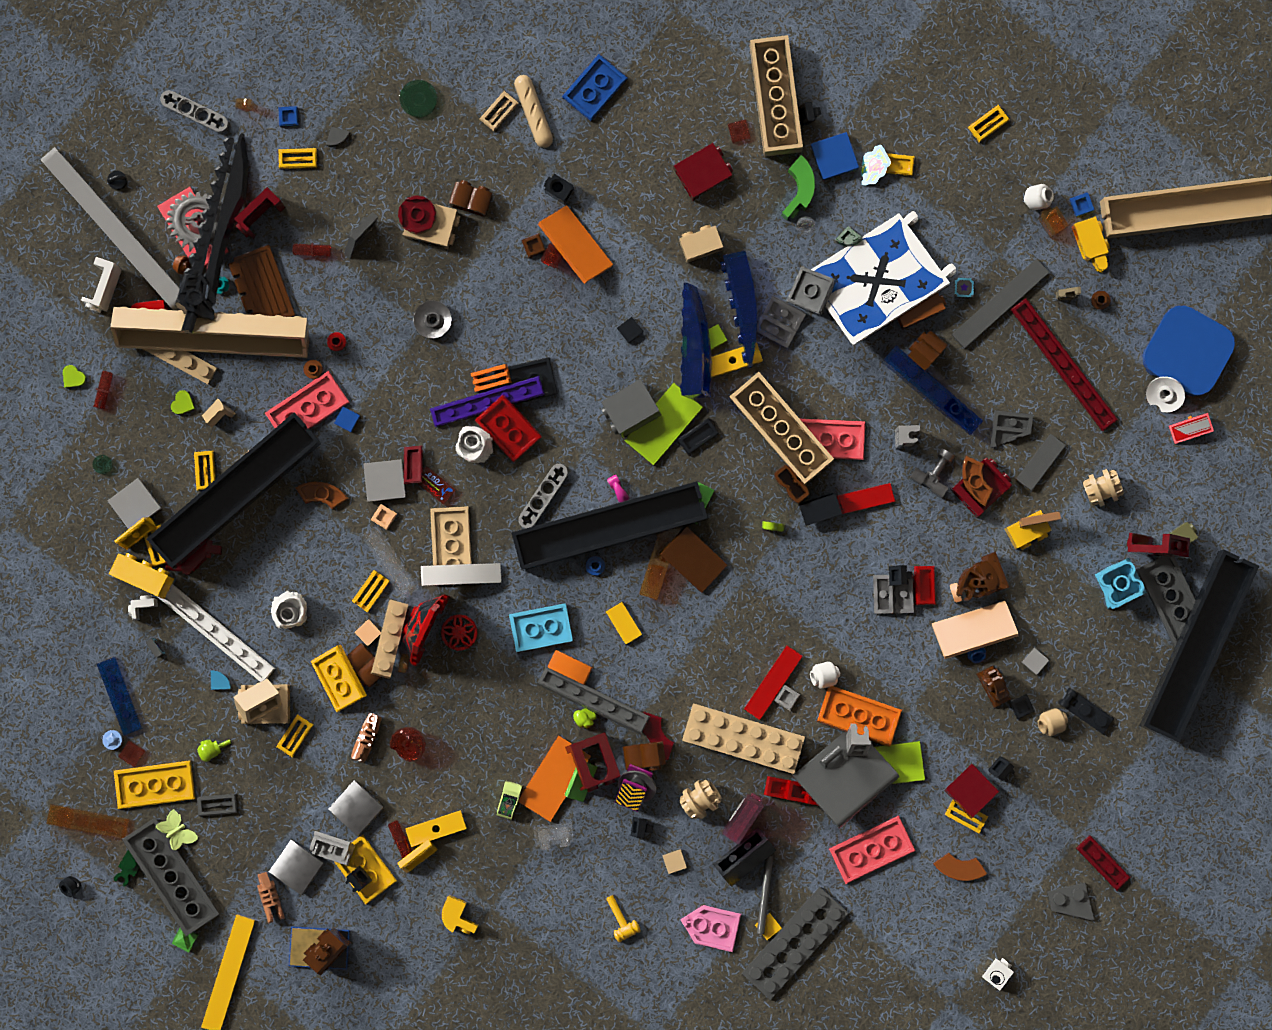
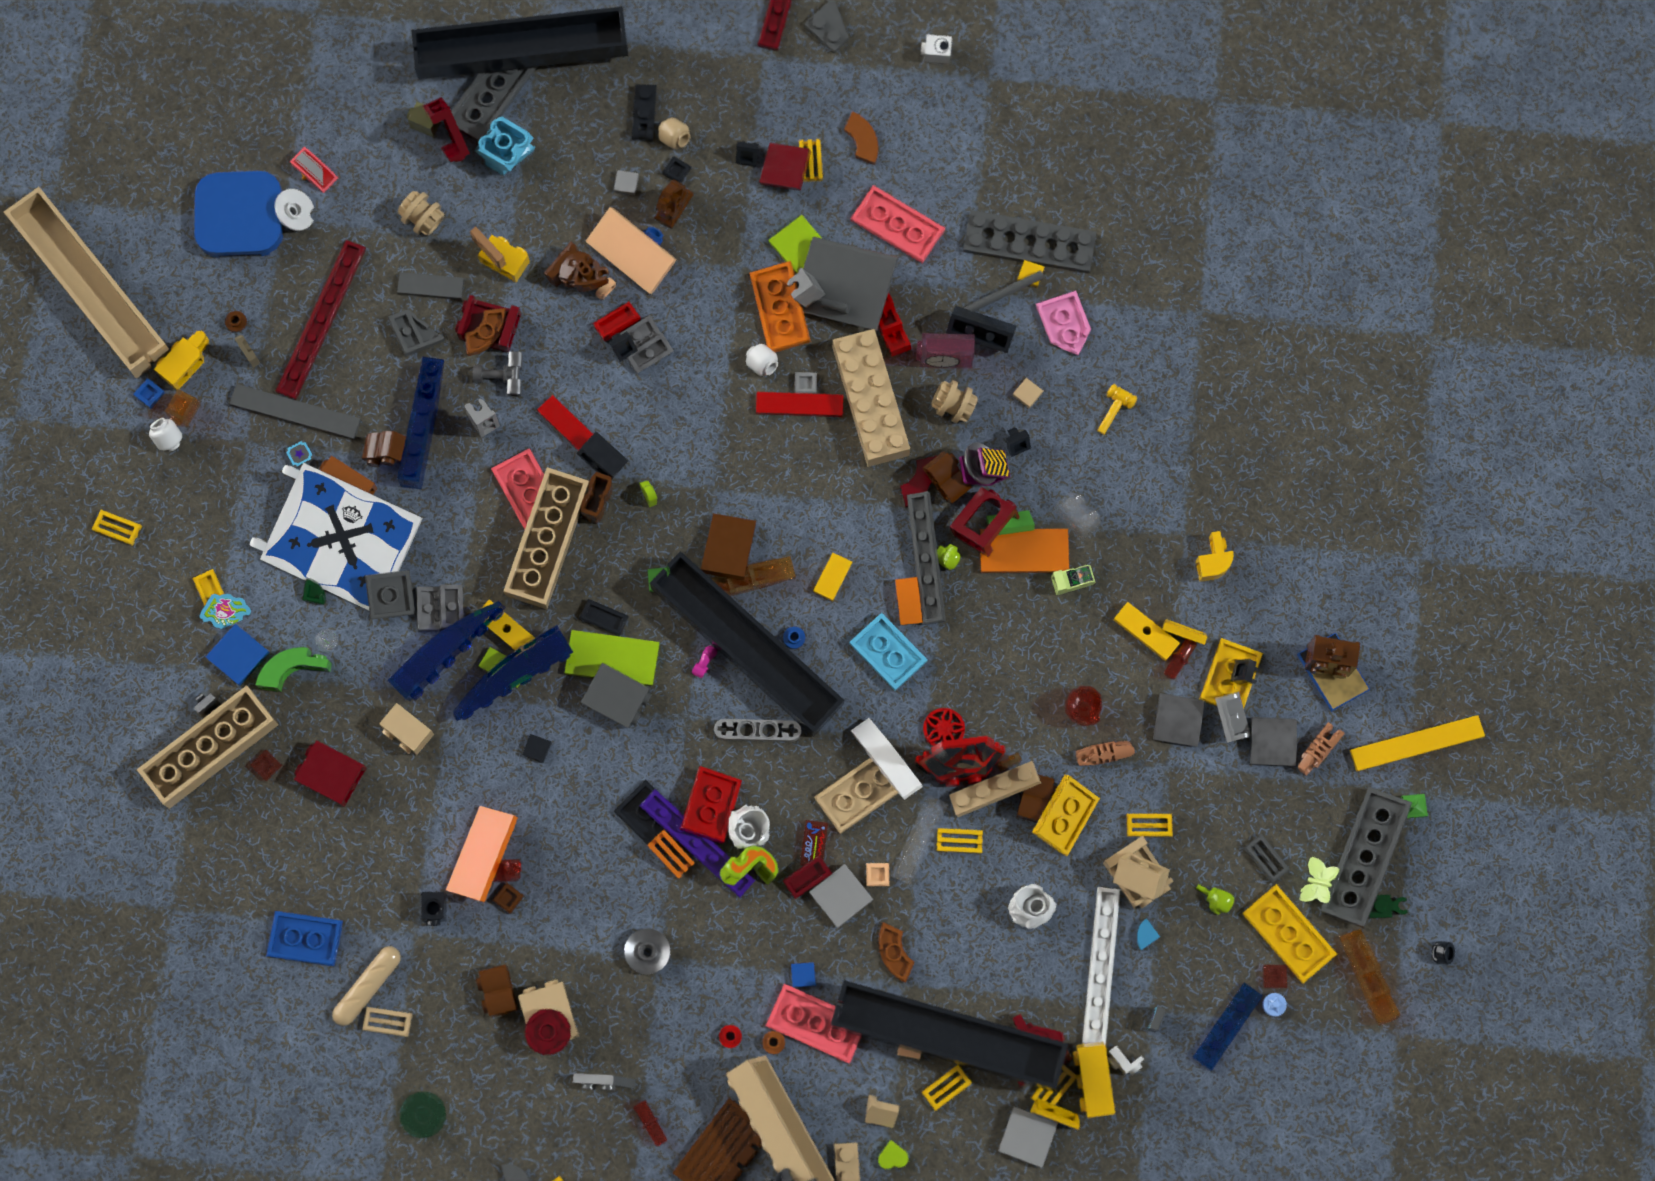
camera: 130 degrees left, 10 degrees down
(368, 632) = (1002, 817): light nougat tile -> none
(450, 426) = (751, 858): none -> lime animal

